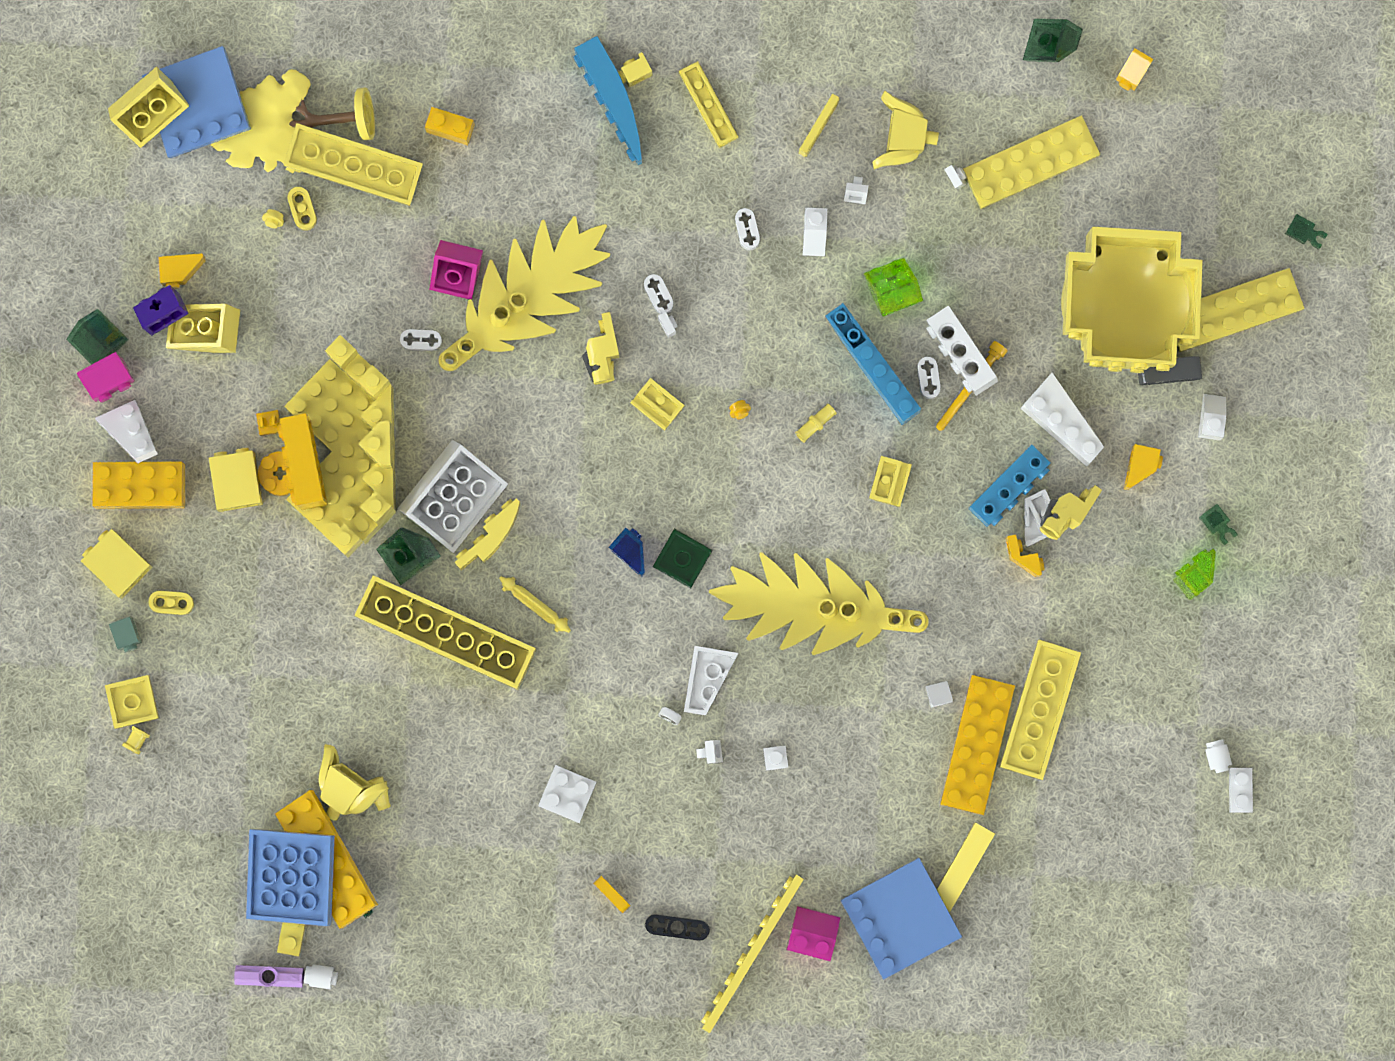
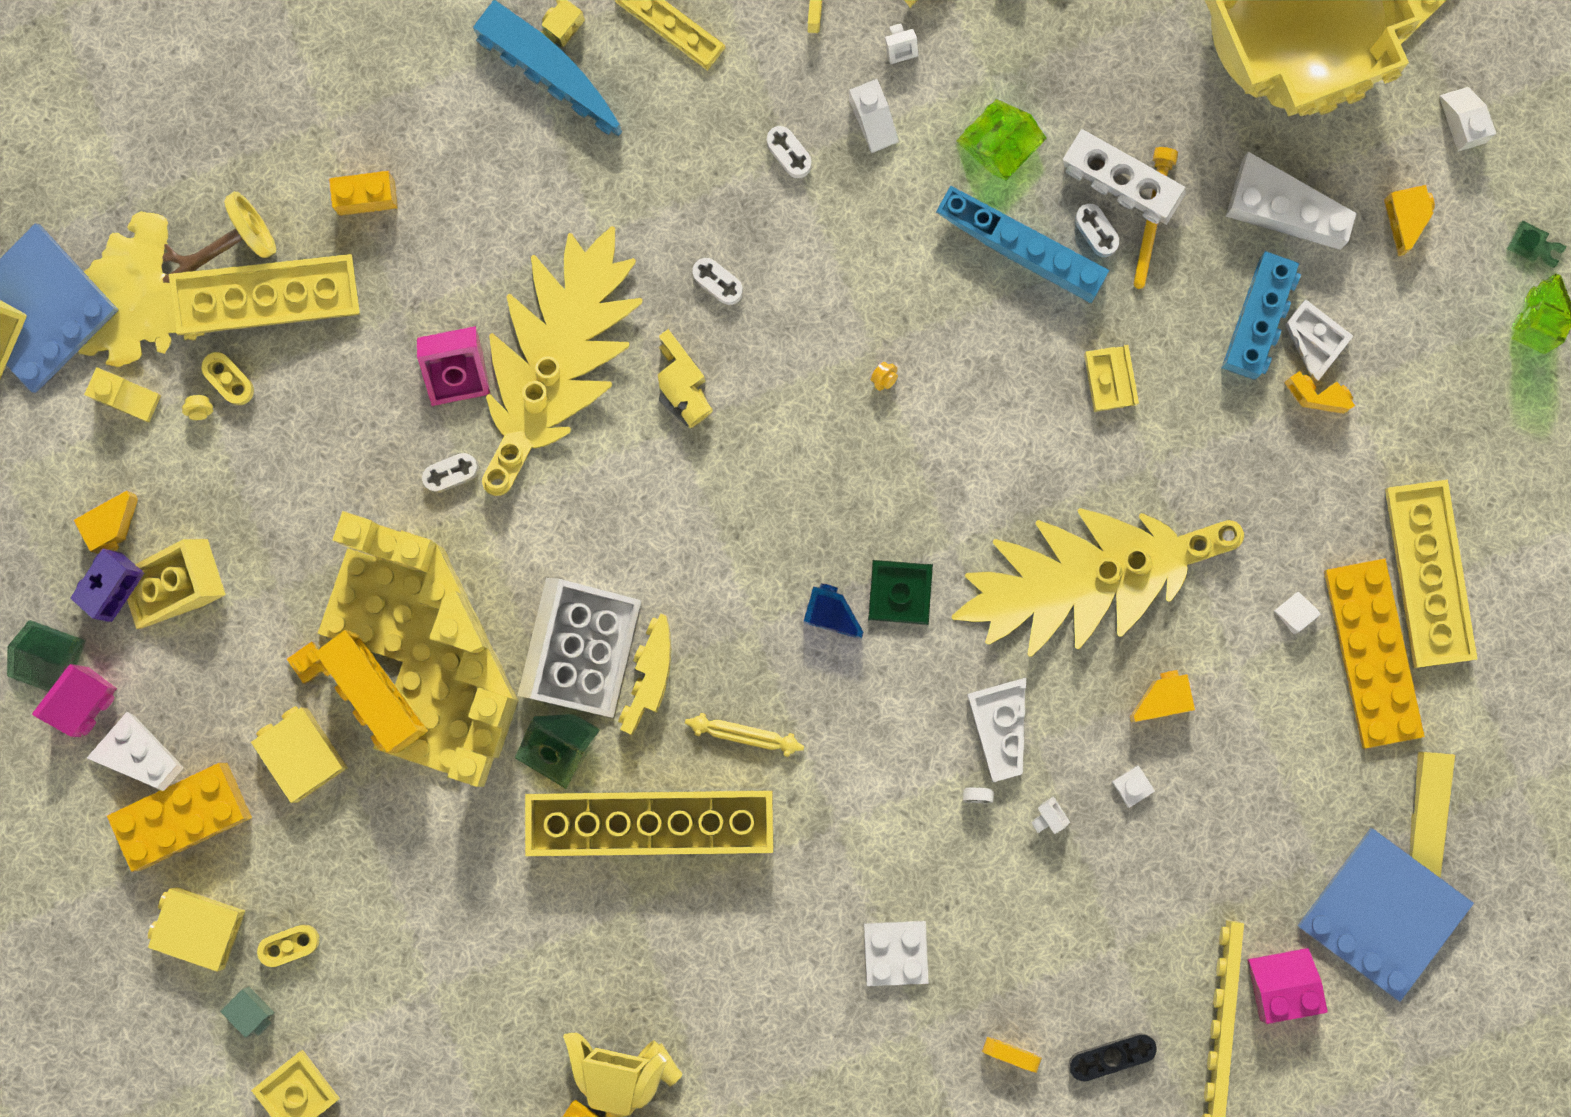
camera: 15 degrees left, 0 degrees up
(227, 187) = (122, 394): none -> light yellow arch
(266, 474) = (342, 736): yellow plate -> none
(657, 404) = (780, 416): light yellow plate -> none
(668, 324) = (746, 311): white plate -> none
(815, 423) = (985, 349): light yellow pin -> none
(823, 709) = (1165, 697): none -> yellow slope
(1067, 512) = (1350, 313): light yellow plate -> none
(1185, 370) = (1380, 95): dark grey beam -> none

